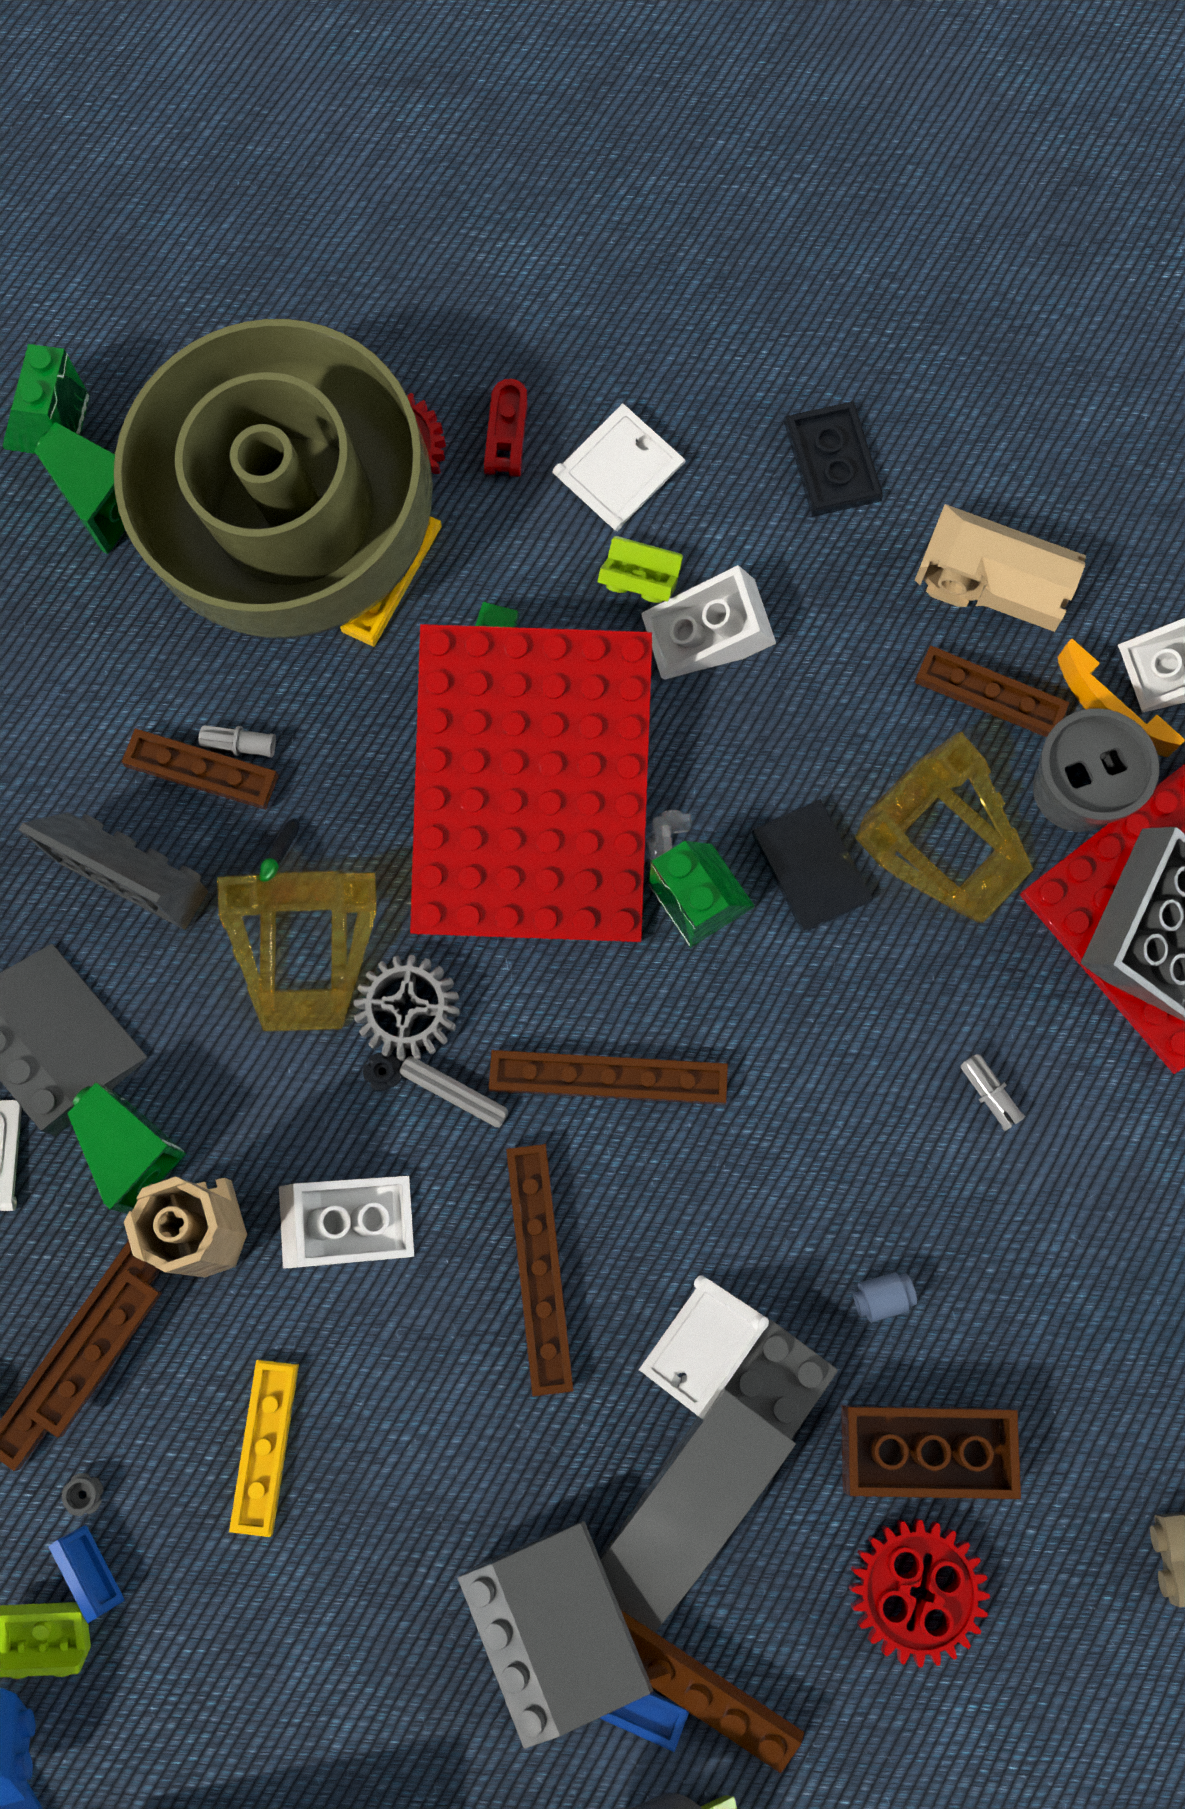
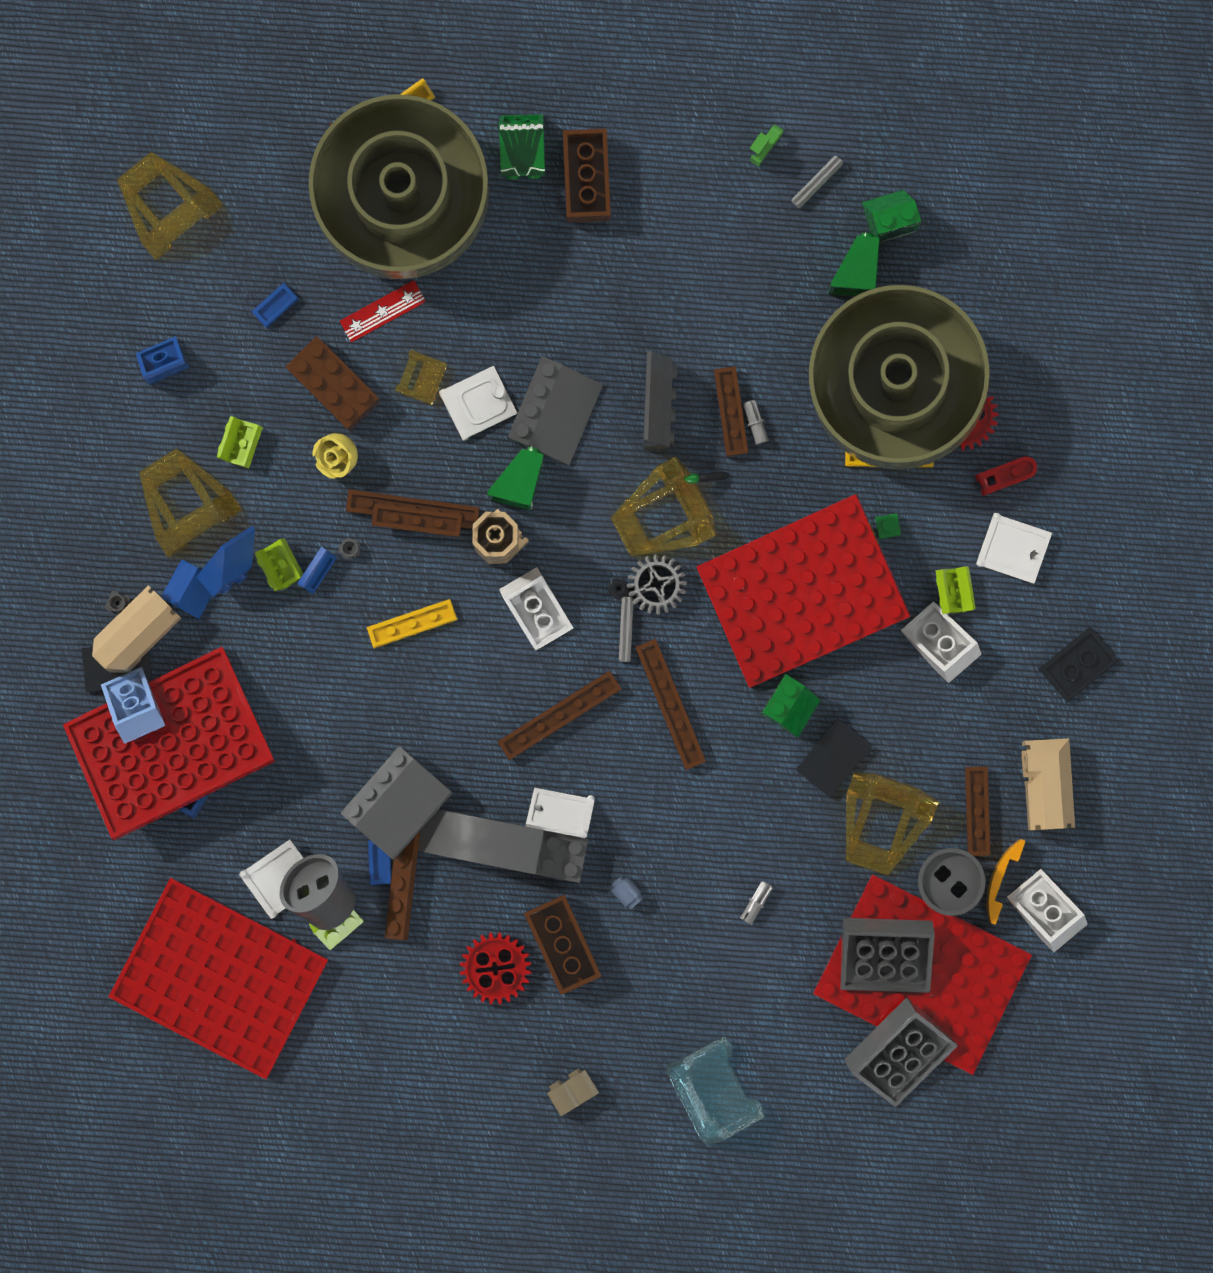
camera: 65 degrees right, 10 degrees up
(662, 828) = (805, 673): clear bracket -> none

